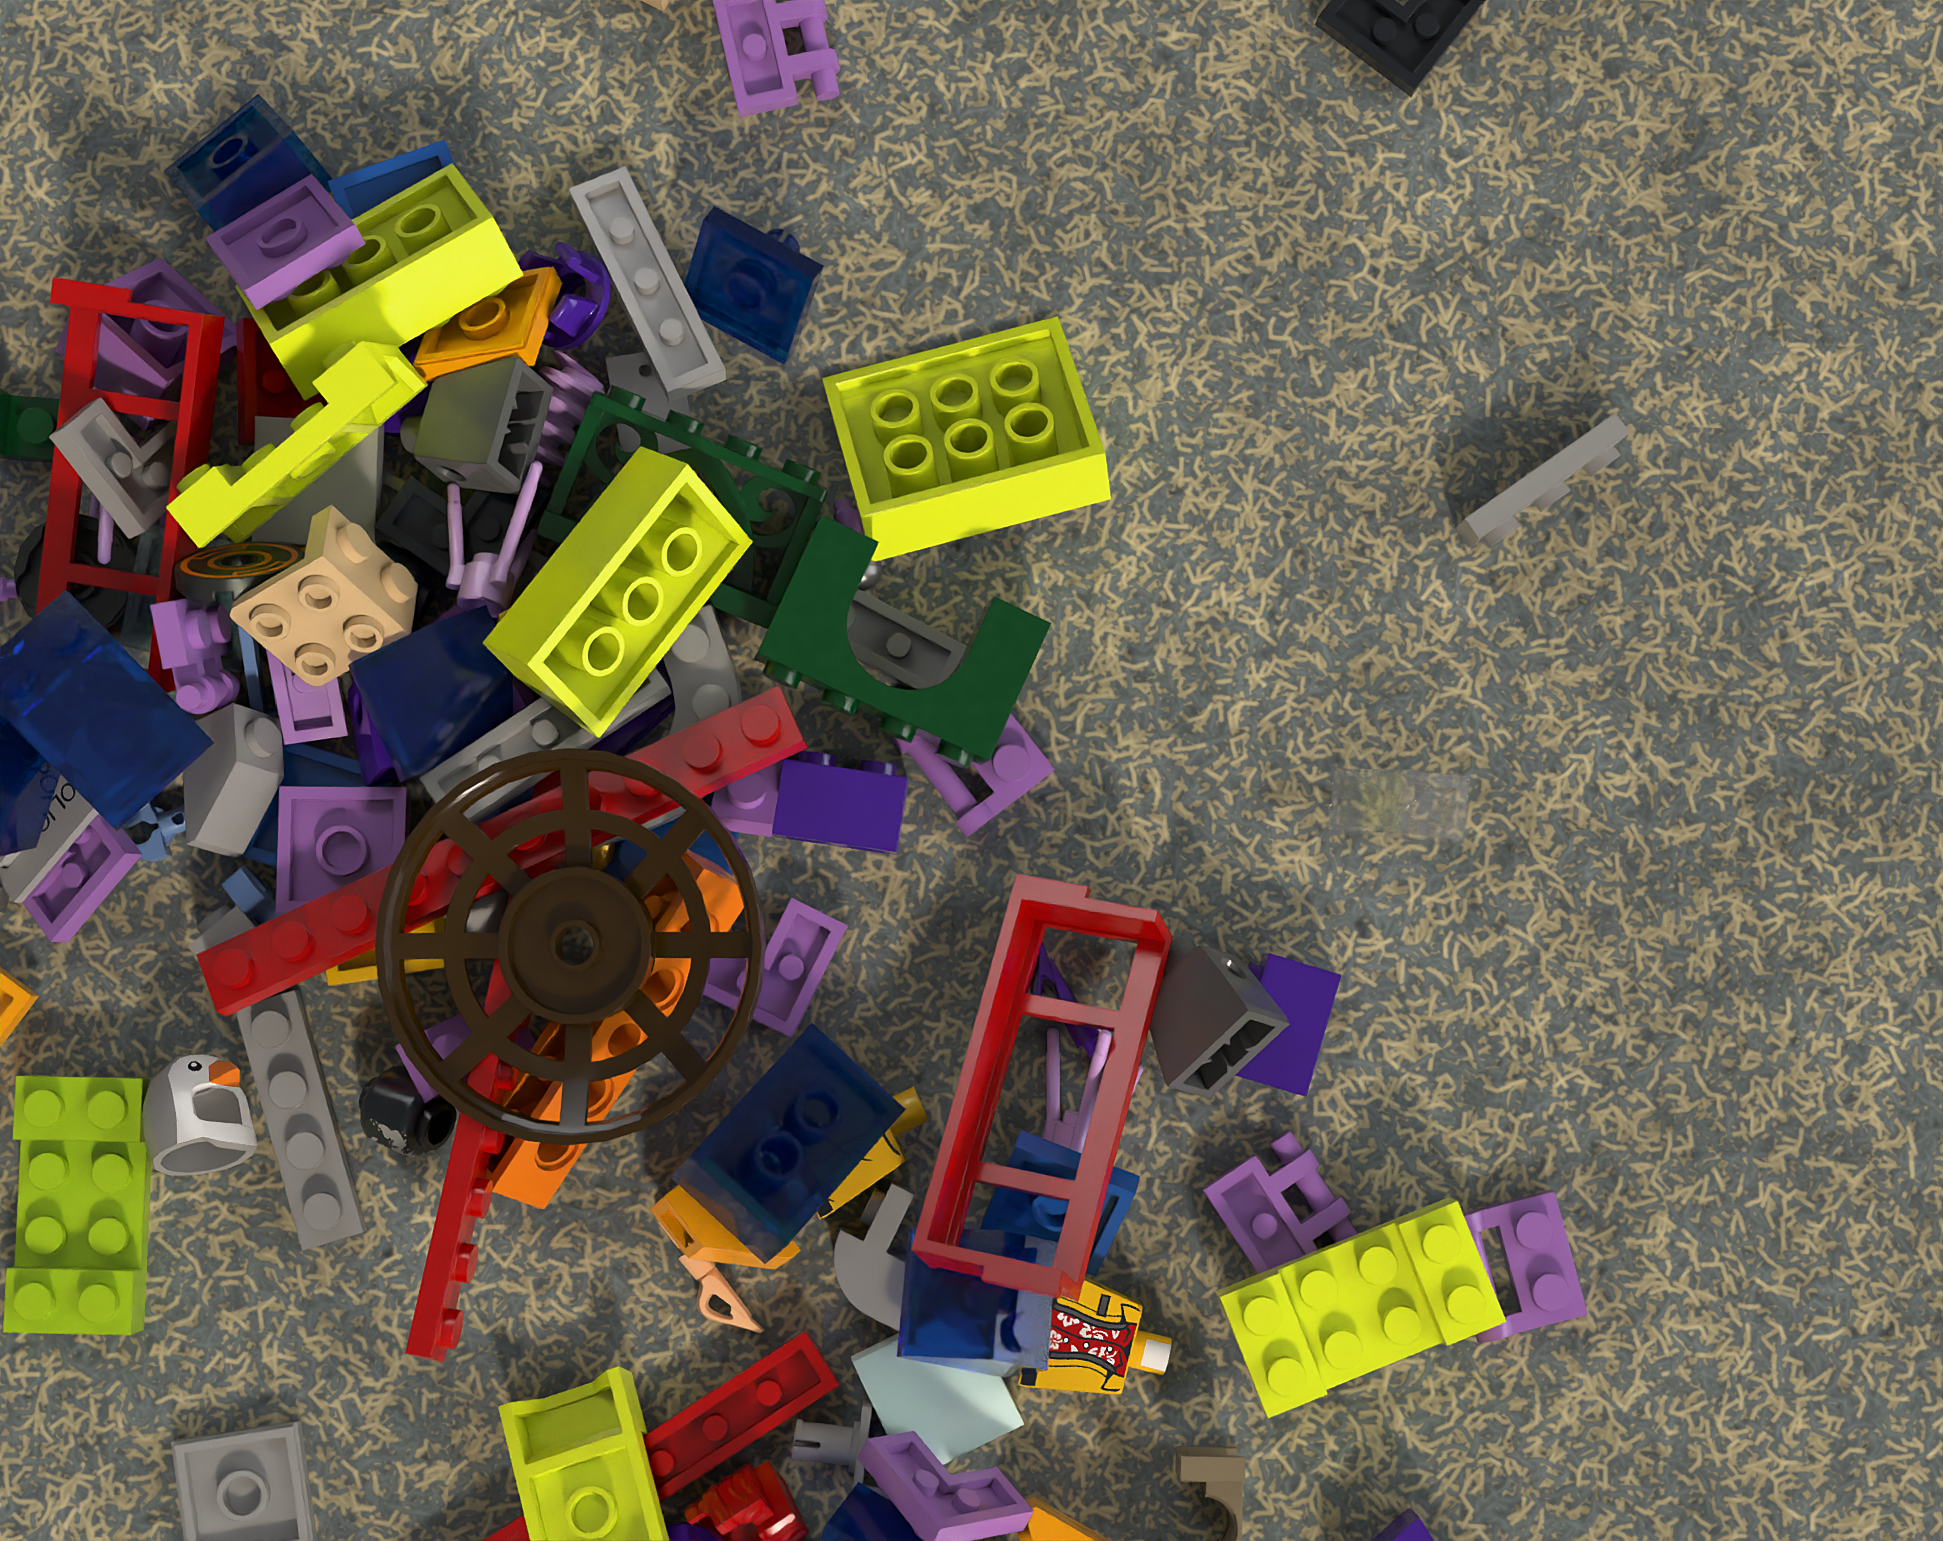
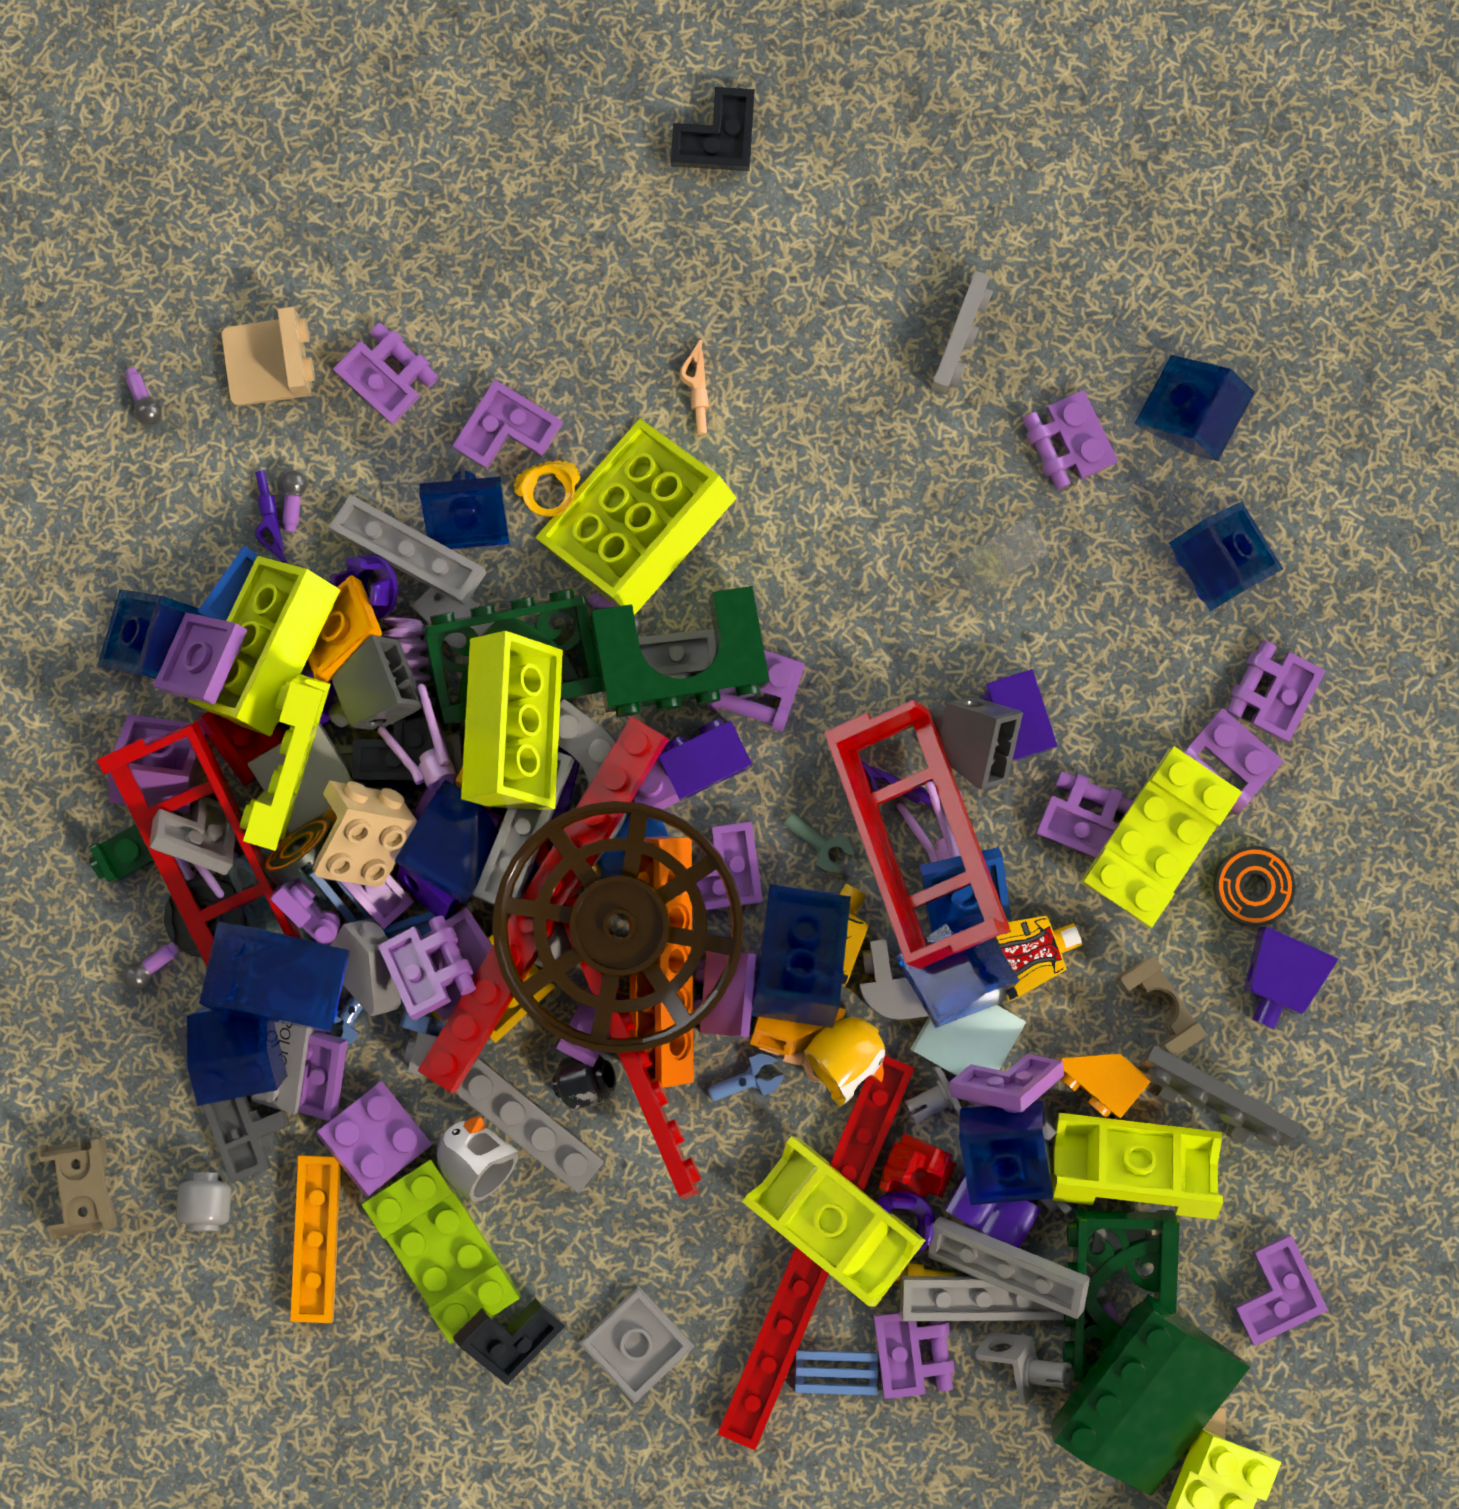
camera: 30 degrees left, 0 degrees up
(80, 1391) = (509, 1348): none -> black plate
(91, 1002) = (373, 1139): none -> medium lavender plate
(278, 824) = (415, 973): none -> medium lavender plate
(510, 120) = (269, 512): none -> dark purple hand
(562, 109) = (293, 486): none -> piece
(618, 1252) = (747, 1080): none -> medium blue bar
(652, 1155) = (733, 1011): none -> medium lavender slope
(760, 1313) = (846, 1056): none -> yellow piece
(859, 300) = (565, 473): none -> yellow piece
(882, 196) = (501, 416): none -> medium lavender plate
(917, 1010) = (819, 842): none -> sand green bar
(1160, 322) = (699, 395): none -> light nougat hand
(1466, 1477) = (1278, 882): none -> pearl dark grey tile
(1608, 715) = (1080, 434): none -> medium lavender plate
(1648, 1233) = (1287, 696): none -> medium lavender plate
(1691, 997) = (1225, 555): none -> clear blue slope
(1783, 779) = (1195, 406): none -> clear blue slope

